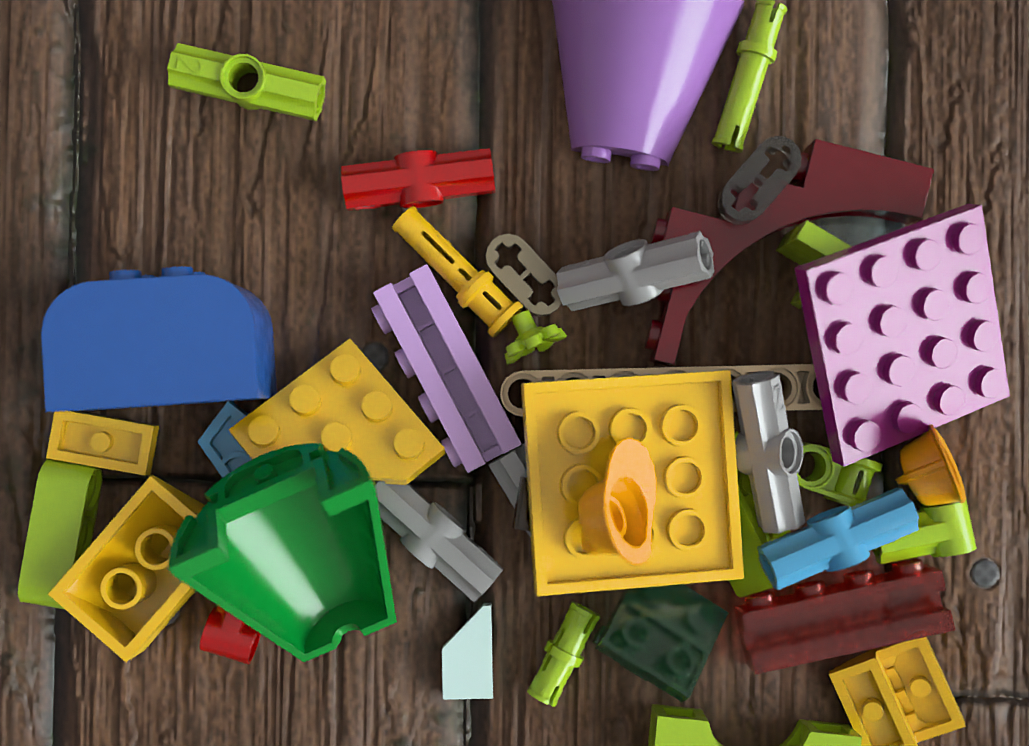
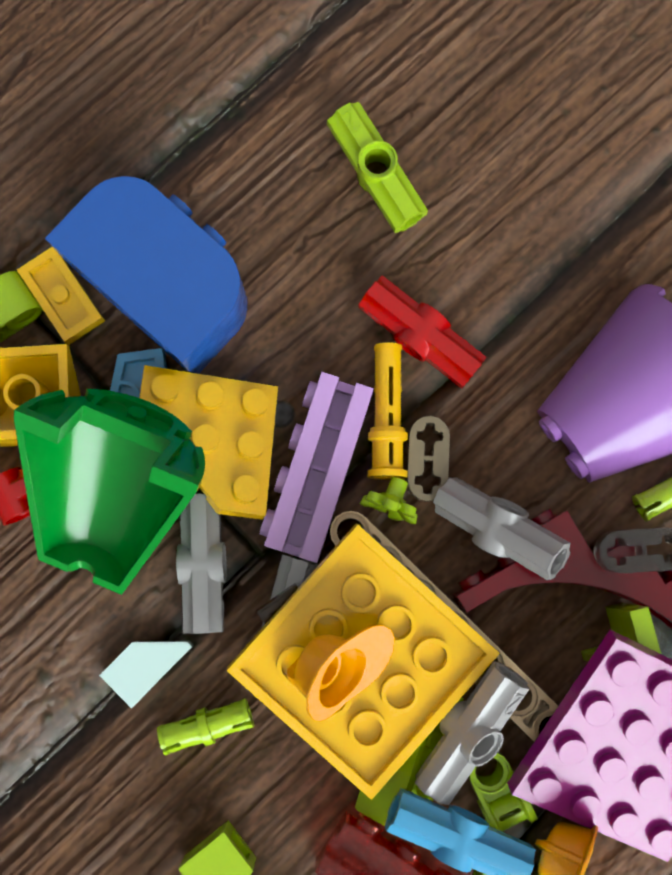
camera: 50 degrees right, 5 degrees down
(662, 635) = (280, 782): clear green plate -> none

